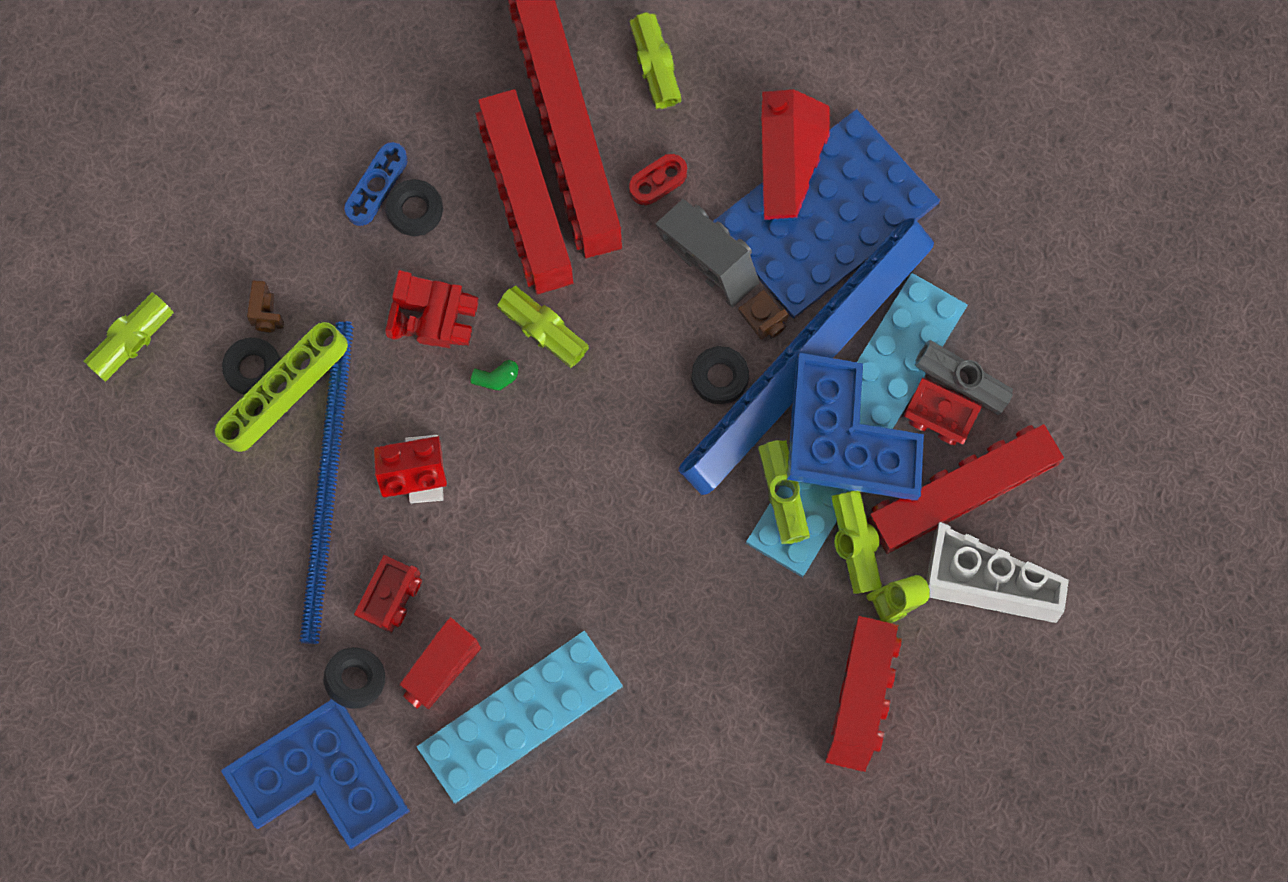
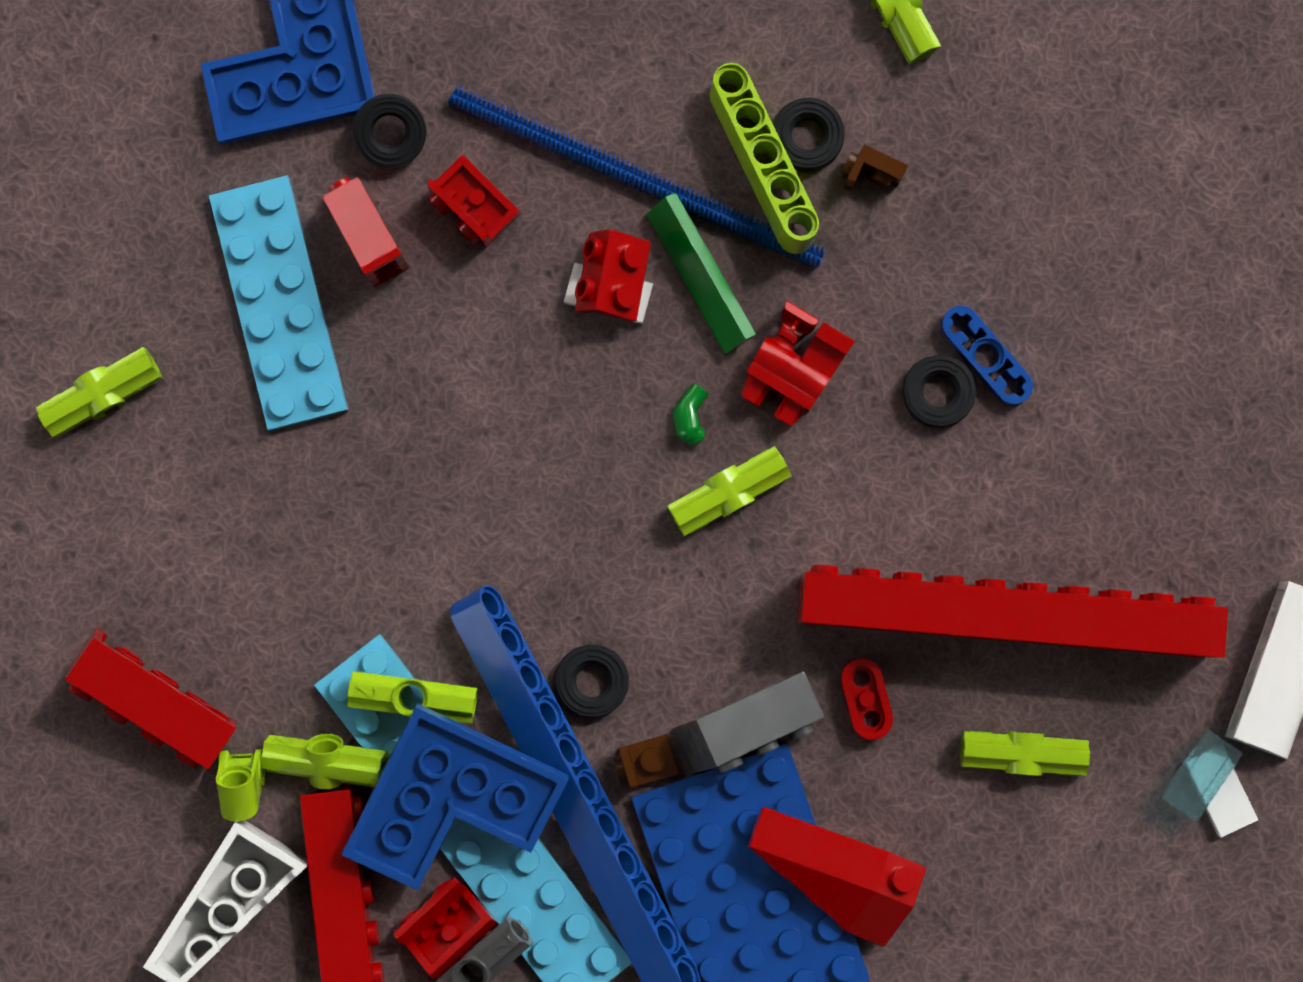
camera: 110 degrees right, 10 degrees up
(385, 404) = (700, 273): none -> green tile
(523, 192) = (903, 527): red brick -> none
(641, 828) = (98, 392): none -> lime piece

